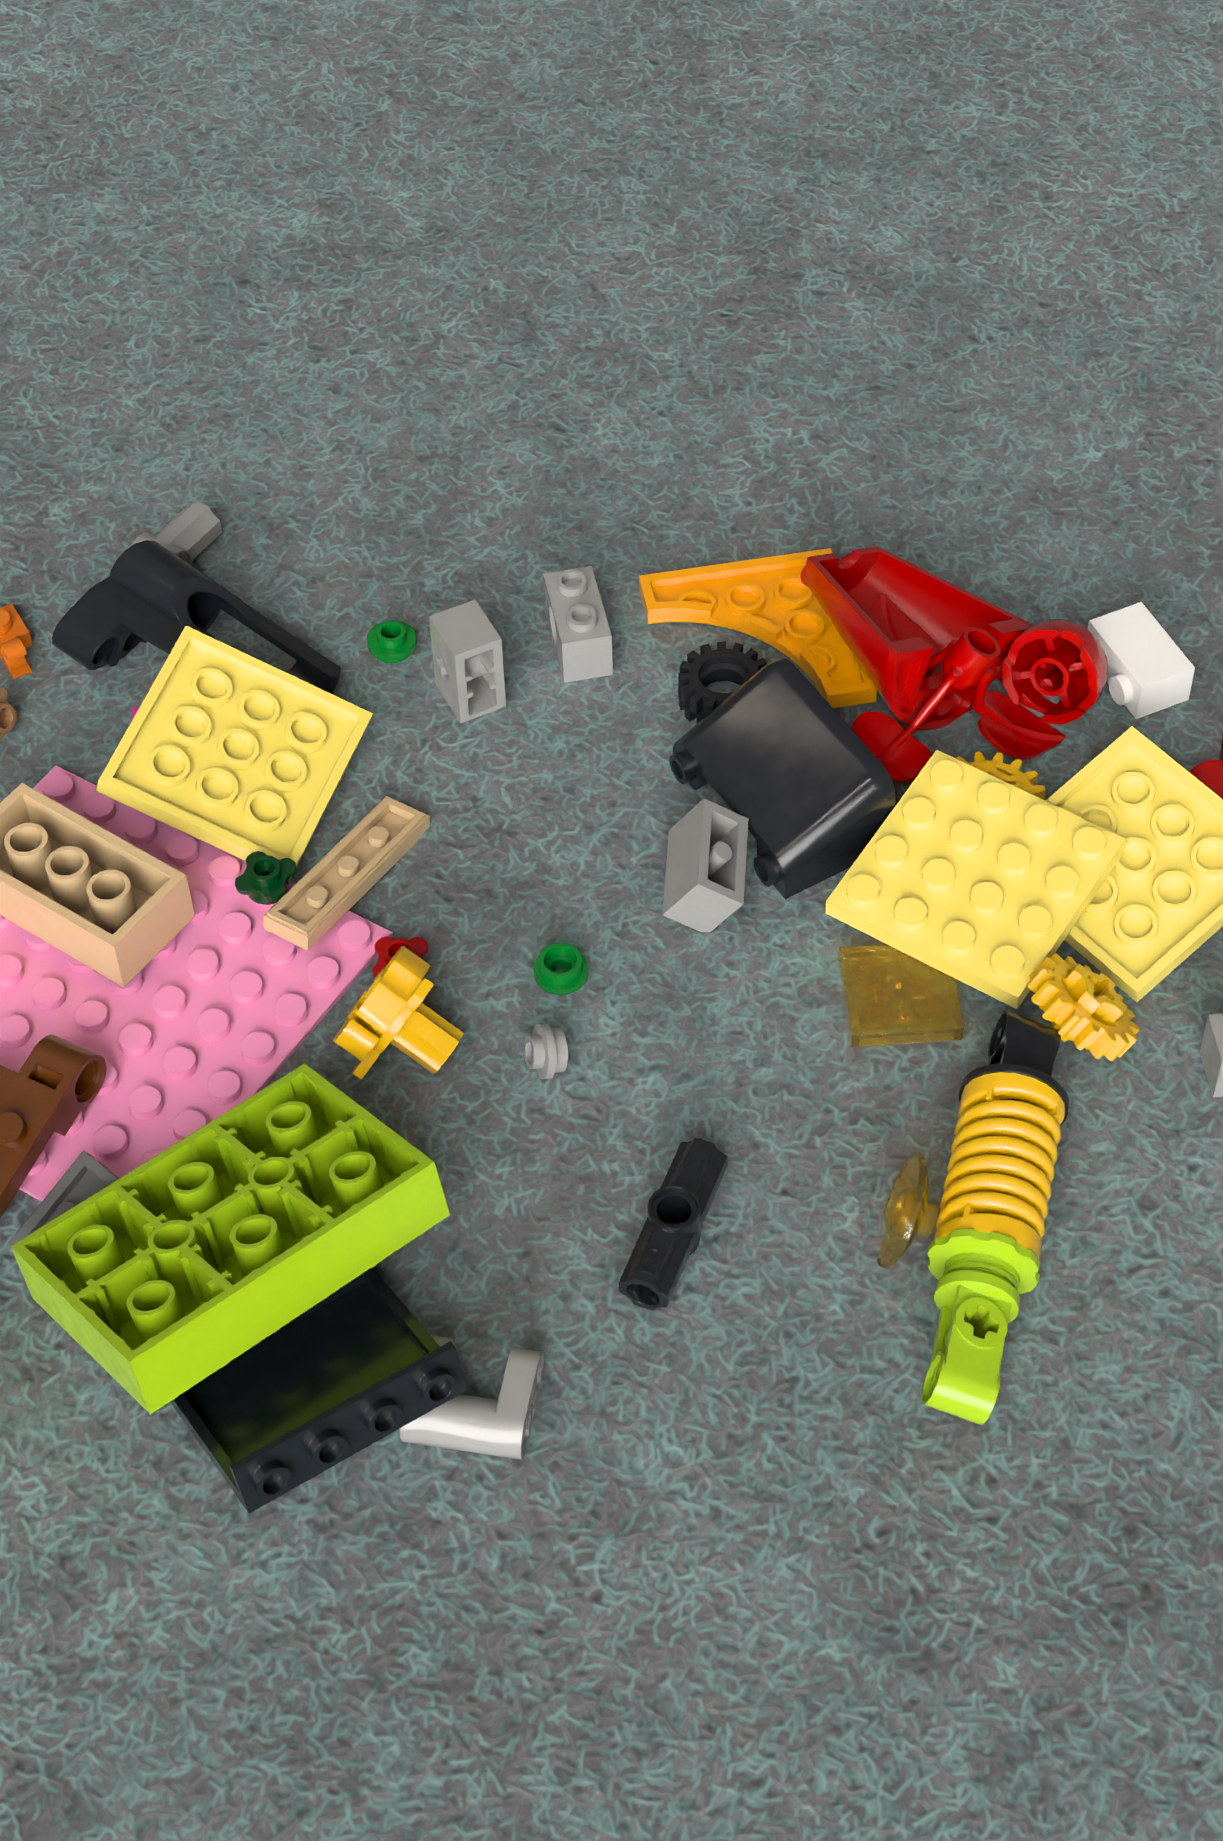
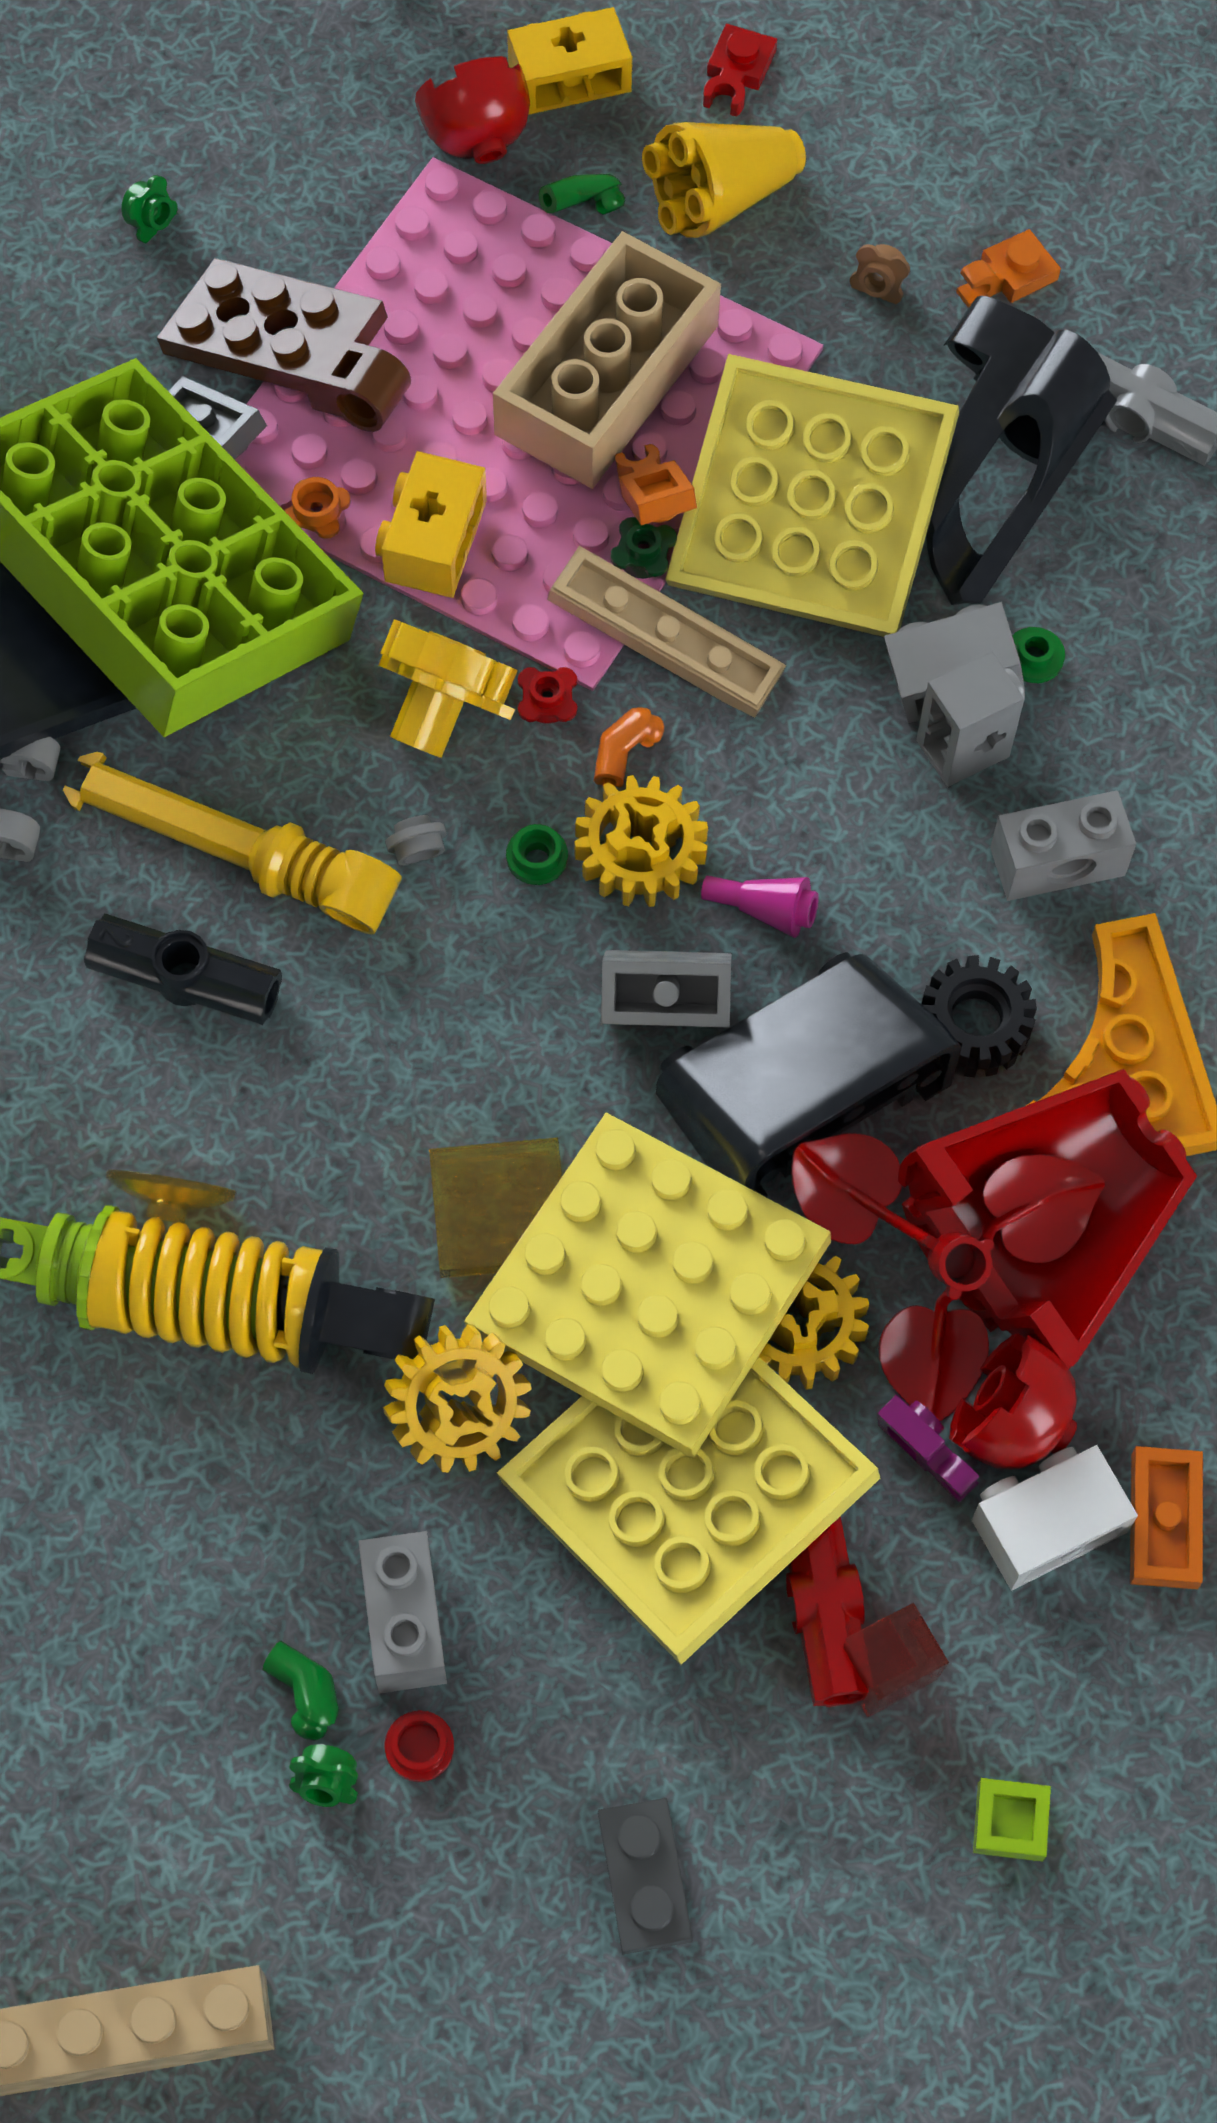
camera: 85 degrees right, 15 degrees up
(183, 1109) = (318, 493): none -> orange plate
(214, 856) = (654, 489): none -> orange plate
(225, 1022) = (432, 523): none -> yellow brick
(403, 677) = (934, 648): none -> light grey brick
(449, 910) = (617, 740): none -> orange arm
(554, 890) = (633, 863): none -> yellow gear
(563, 1149) = (281, 859): none -> yellow piece
(617, 804) = (778, 902): none -> dark pink cone
(1083, 732) = (918, 1435): none -> magenta plate
(1107, 595) = (1169, 1523): none -> orange plate

